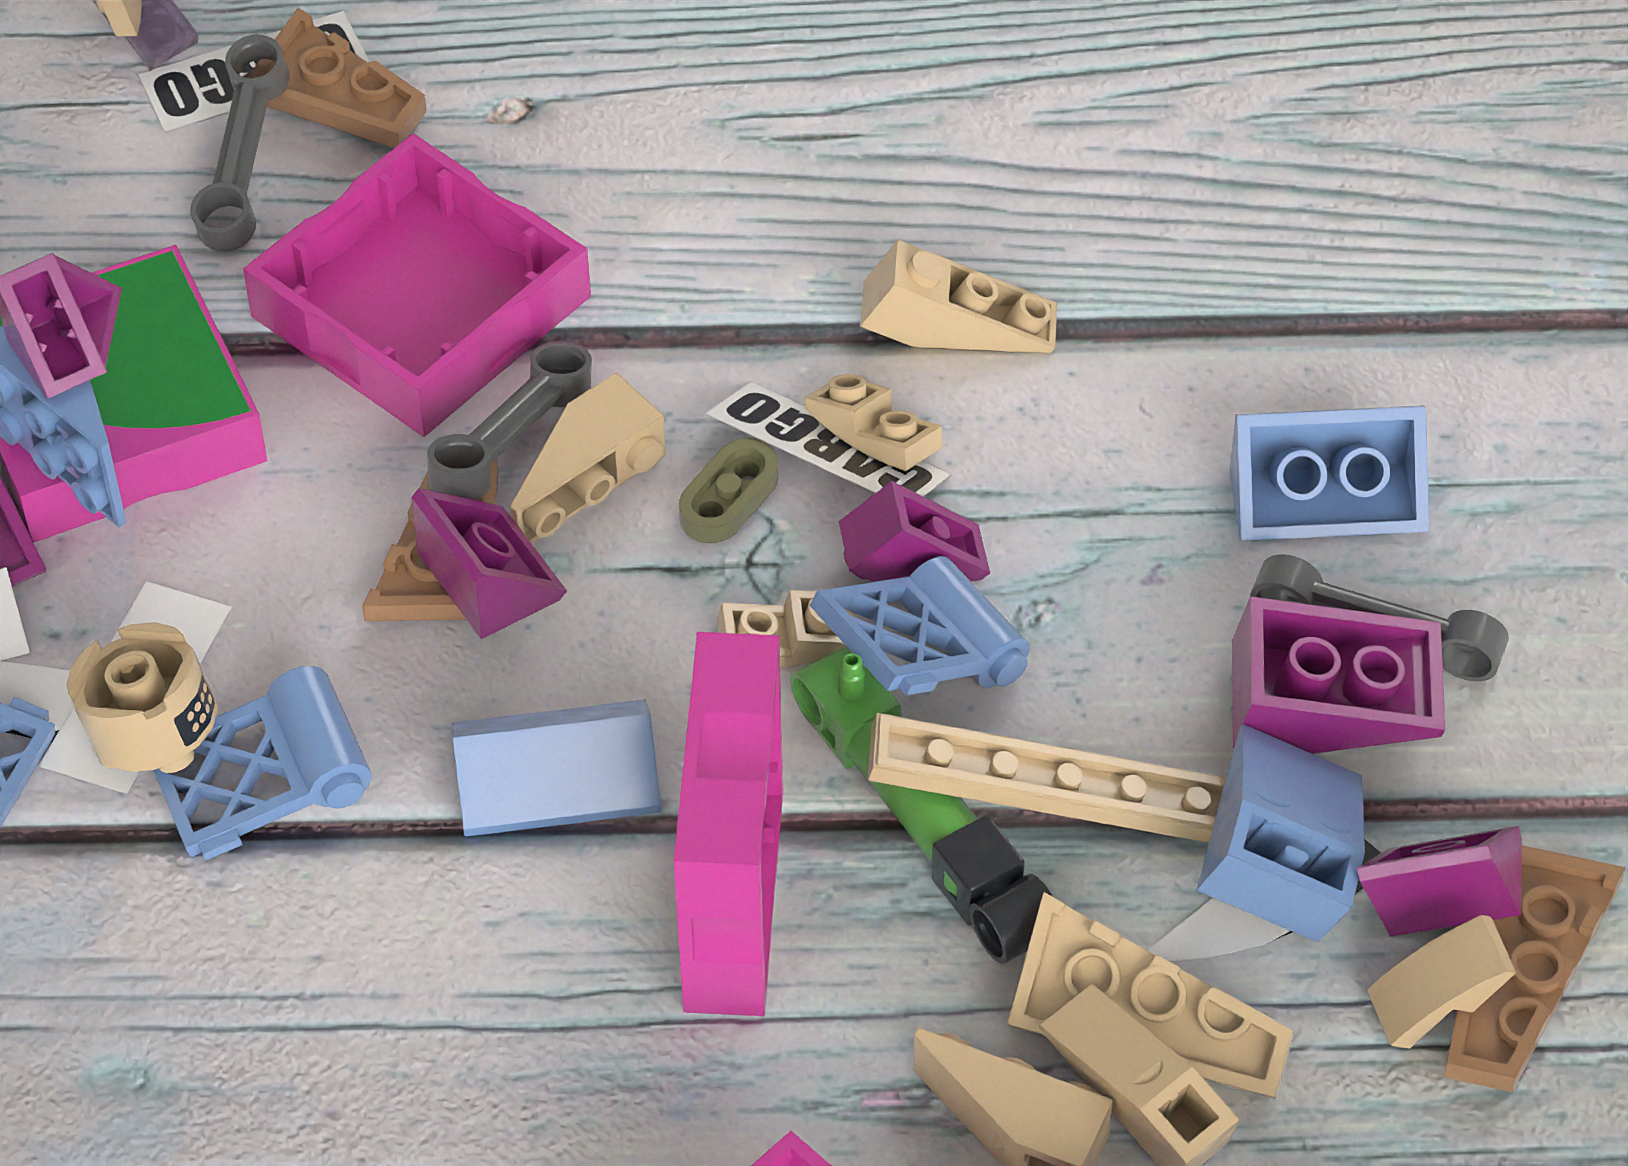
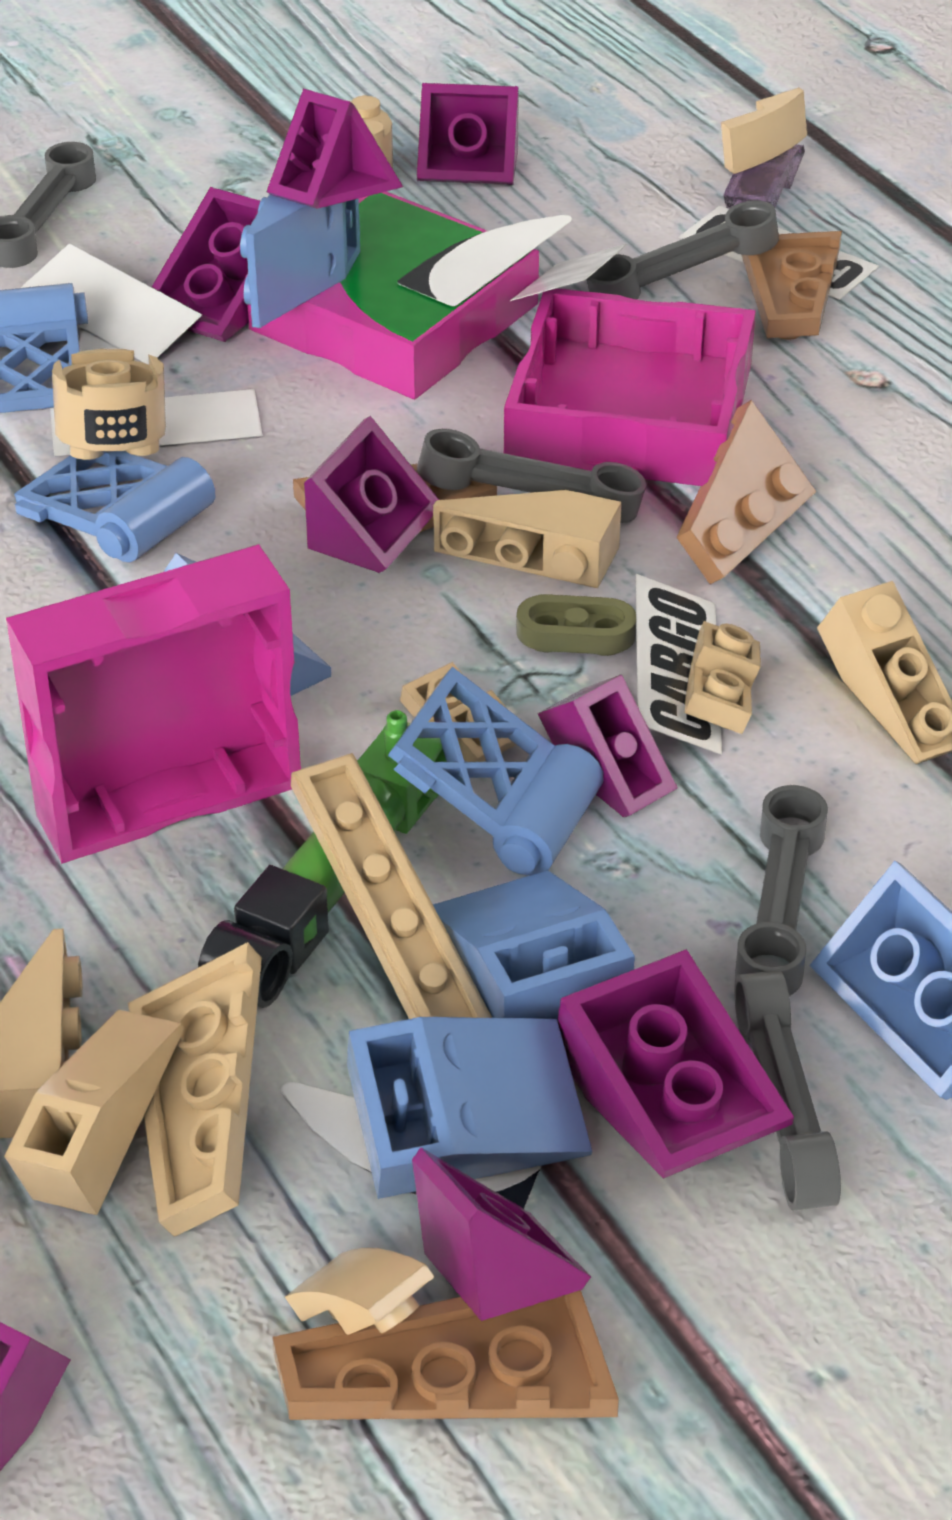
camera: 60 degrees right, 10 degrees down
(157, 306) = (477, 260): none -> white sticker
(224, 237) = (570, 272): none -> white sticker
(668, 293) = (745, 498): none -> wing
(1134, 699) = (533, 944): none -> medium blue slope
(1154, 513) = (783, 881): none -> dark grey piece

